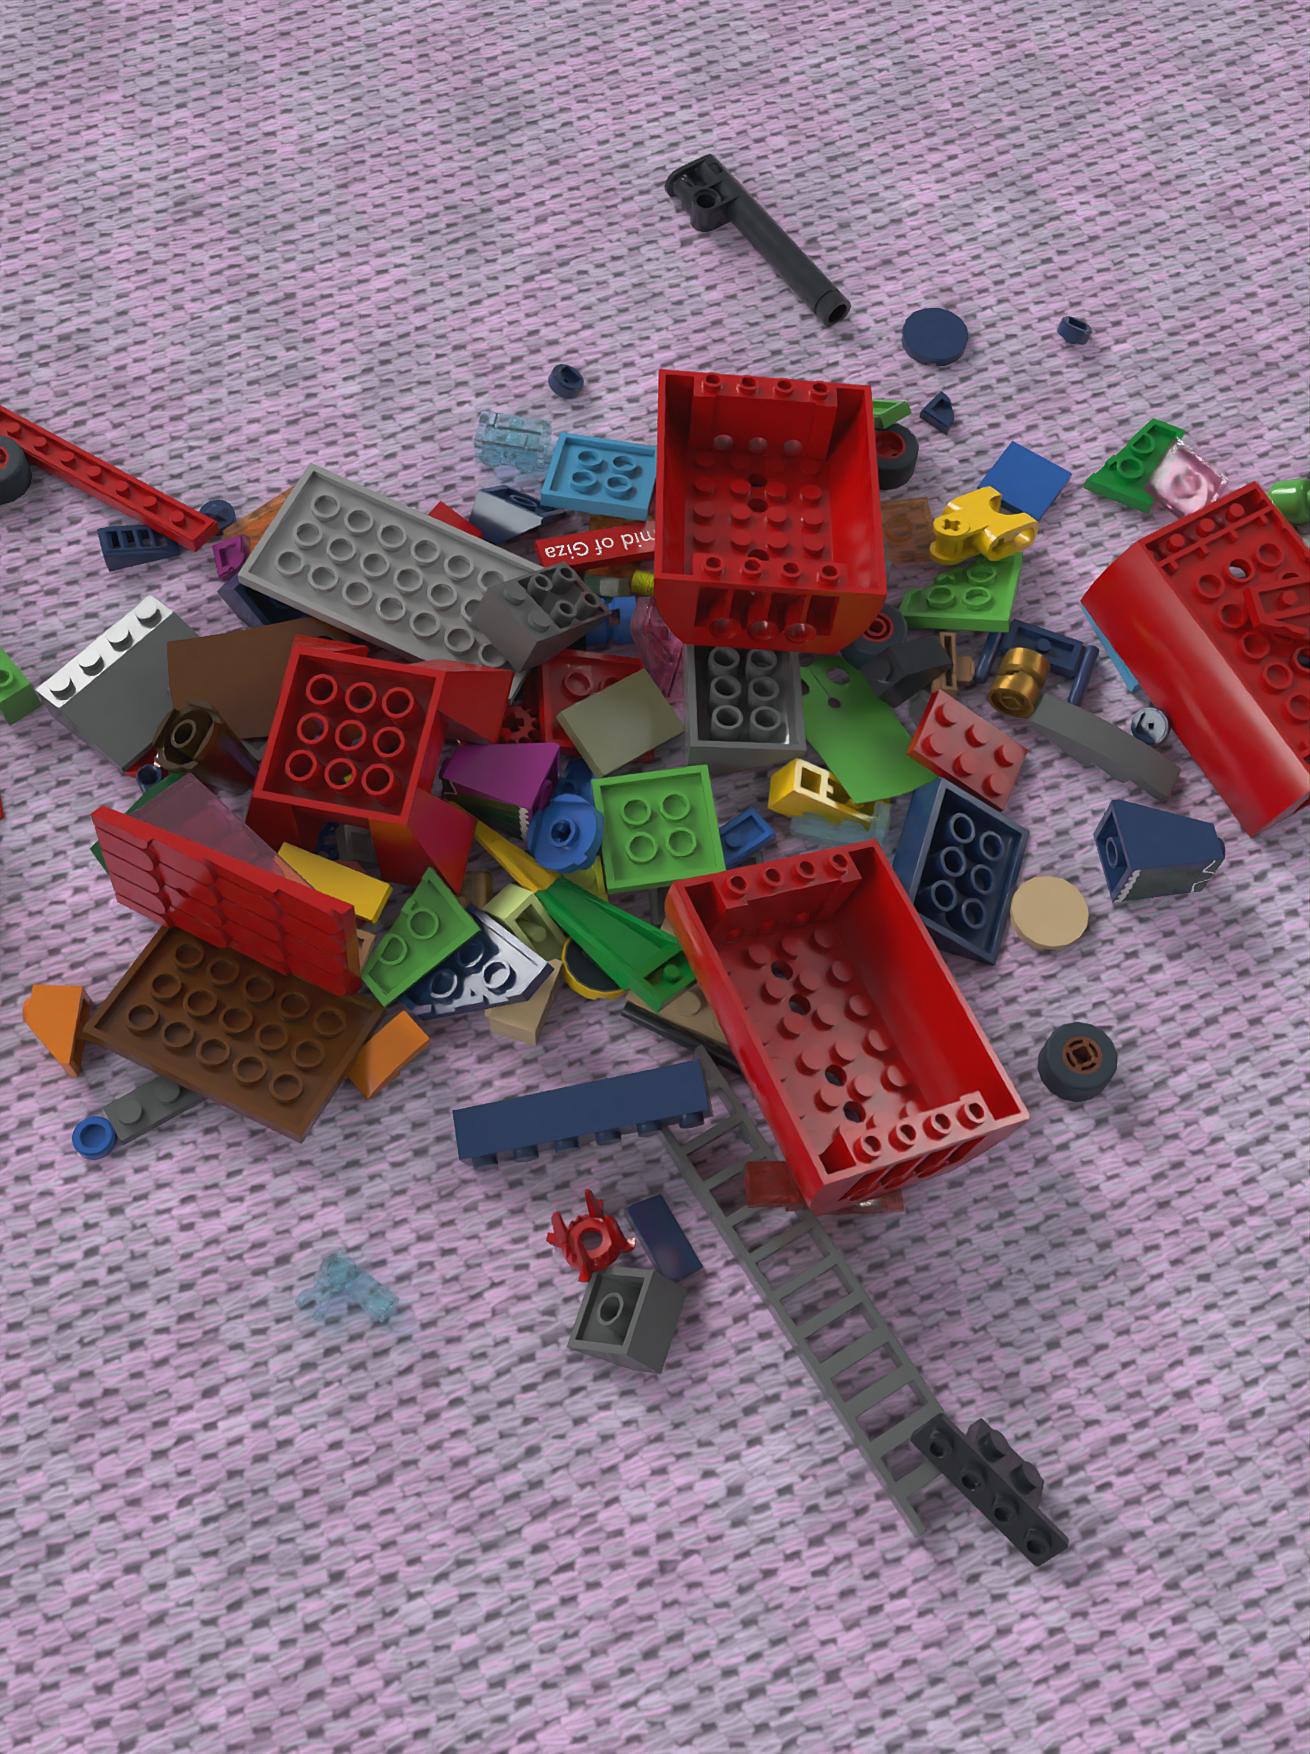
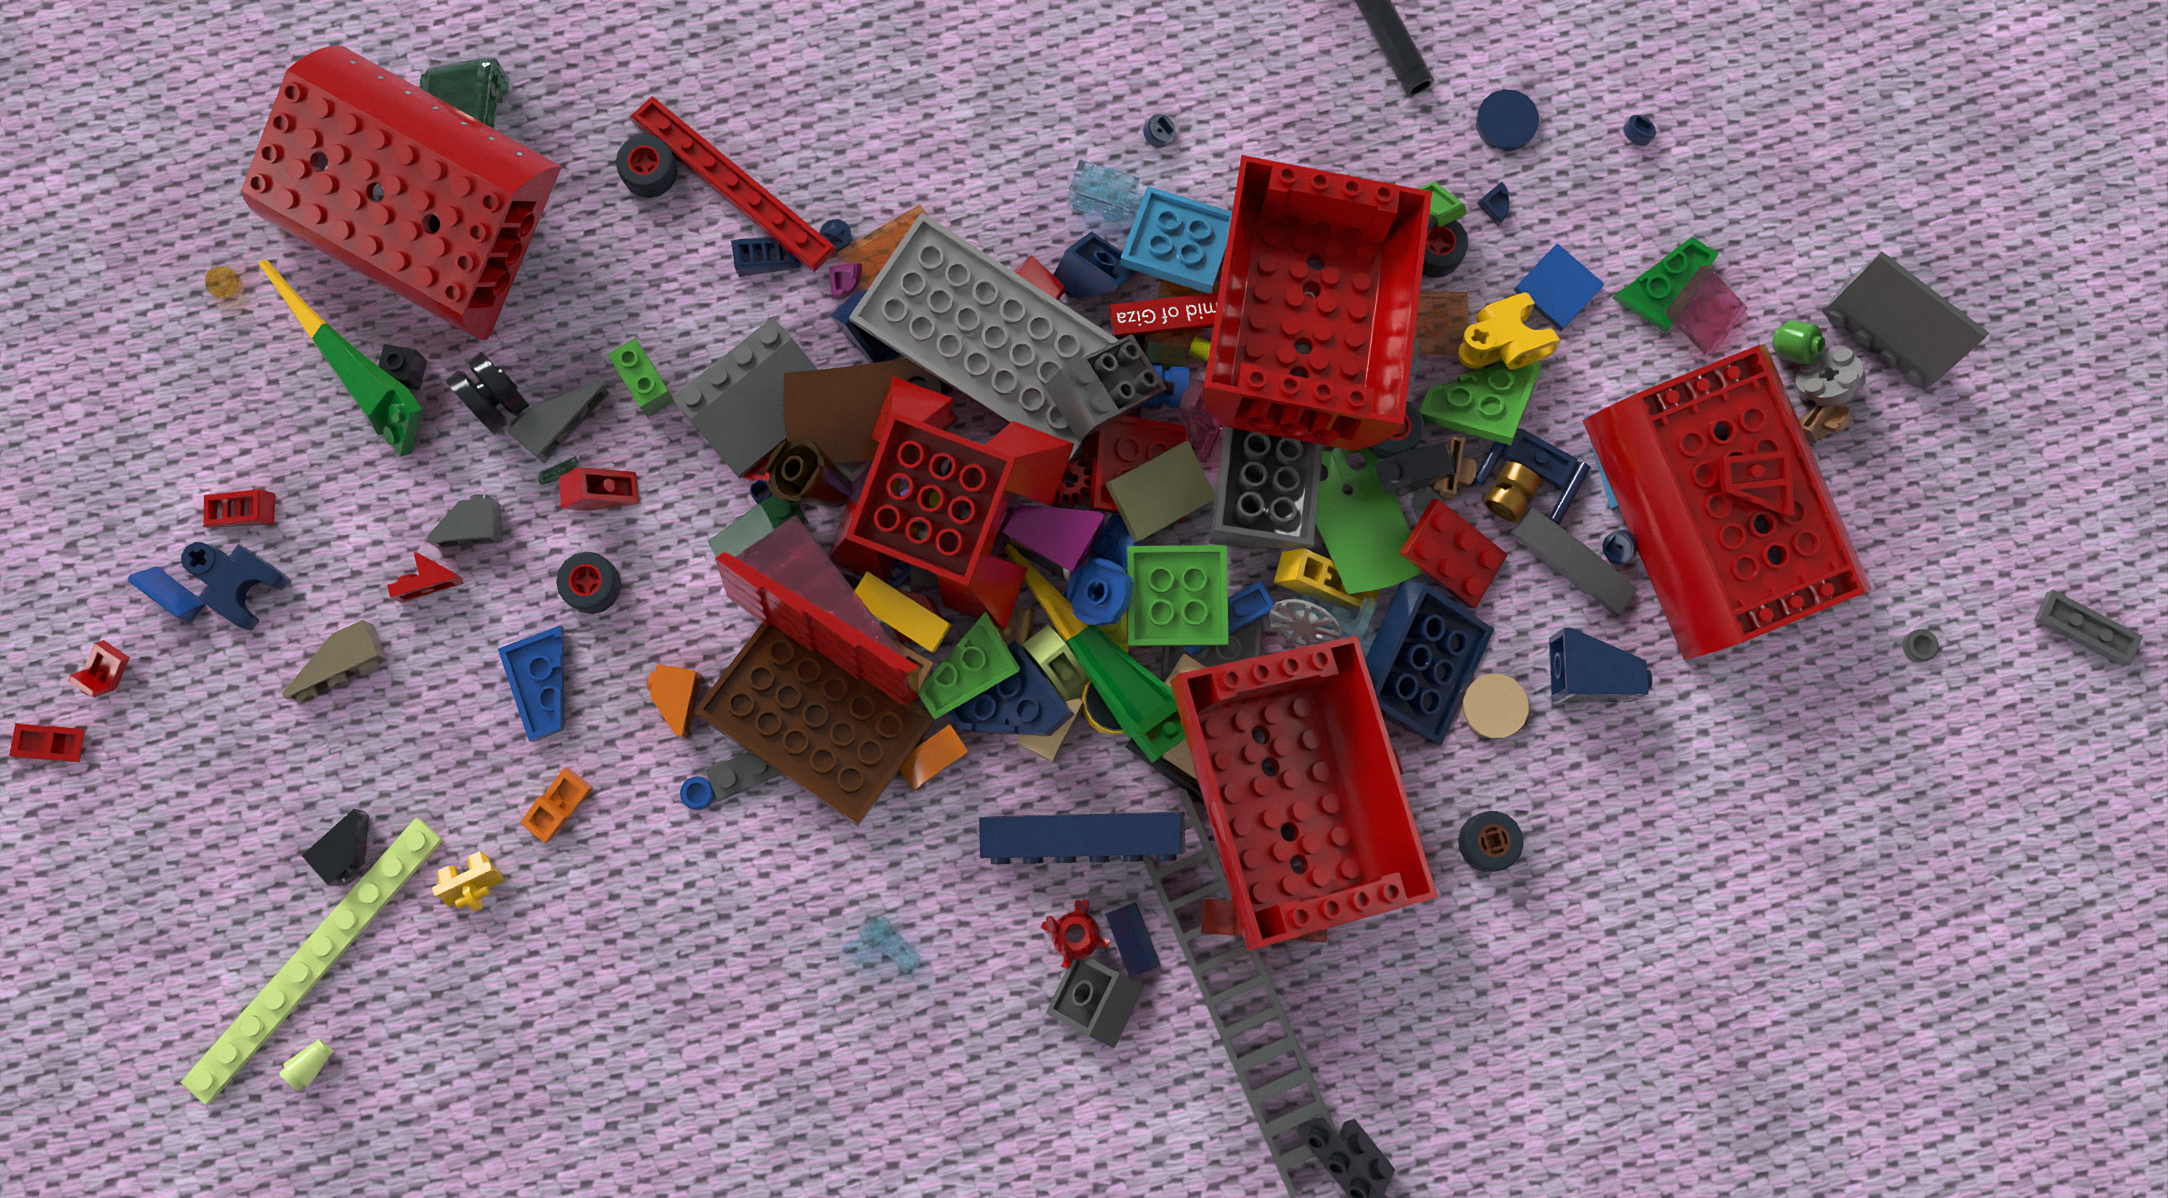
camera: 10 degrees right, 15 degrees up
(809, 838) = (1303, 623): none -> light grey wheel

